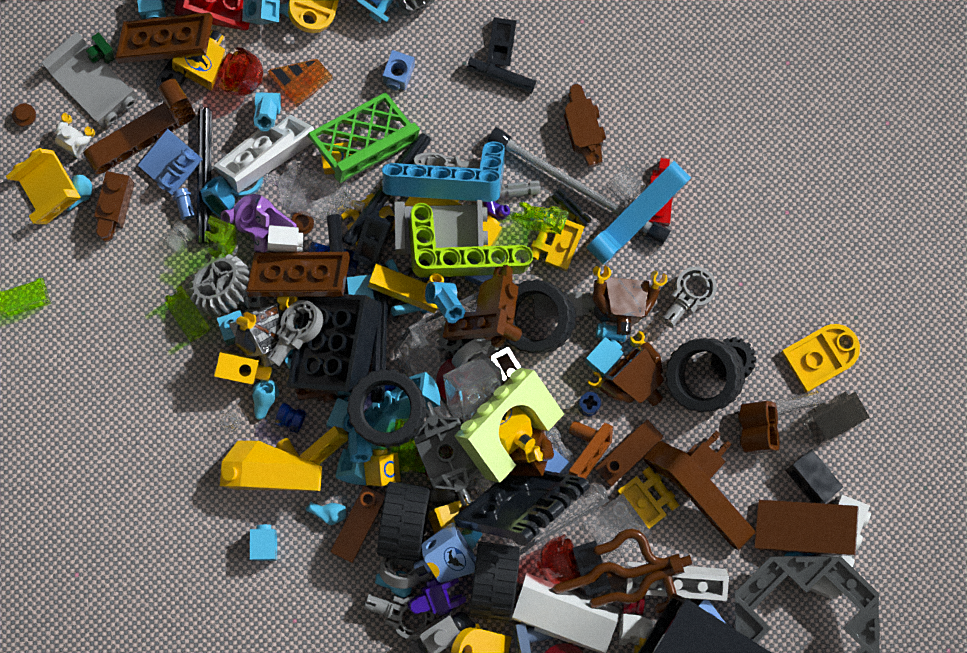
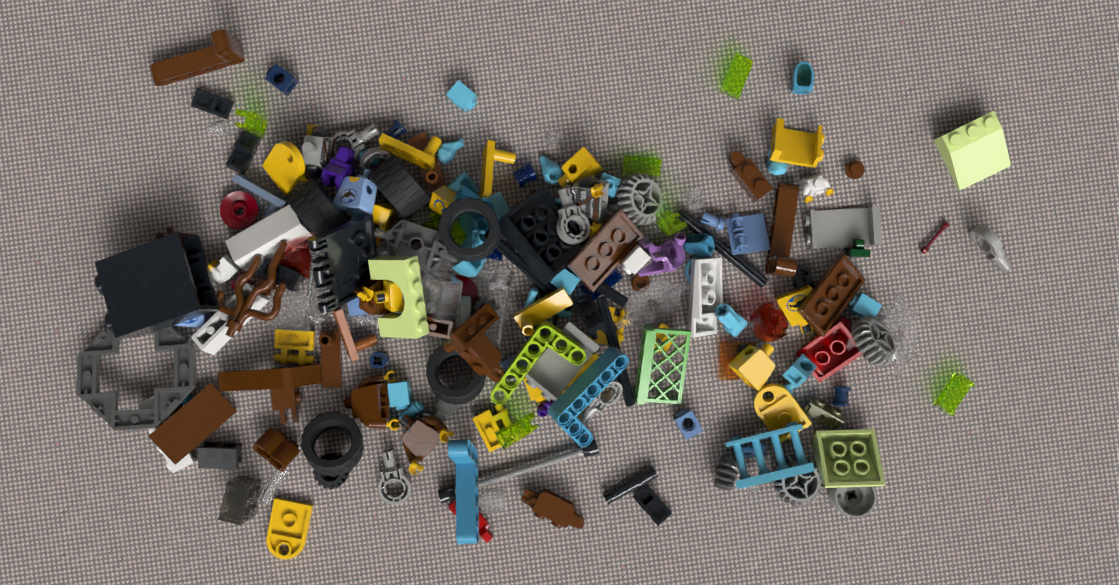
camera: 130 degrees right, 10 degrees up
(264, 467) = (507, 131): yellow wedge -> none
(291, 54) = (754, 365): none -> yellow torso
(354, 581) = (396, 125): none -> dark blue bush
(358, 526) = (423, 159): none -> yellow piece
(445, 298) = (510, 324): dark azure piece -> none
(520, 189) = (547, 435): light grey axle -> none
(574, 210) = (509, 455): black axle -> none

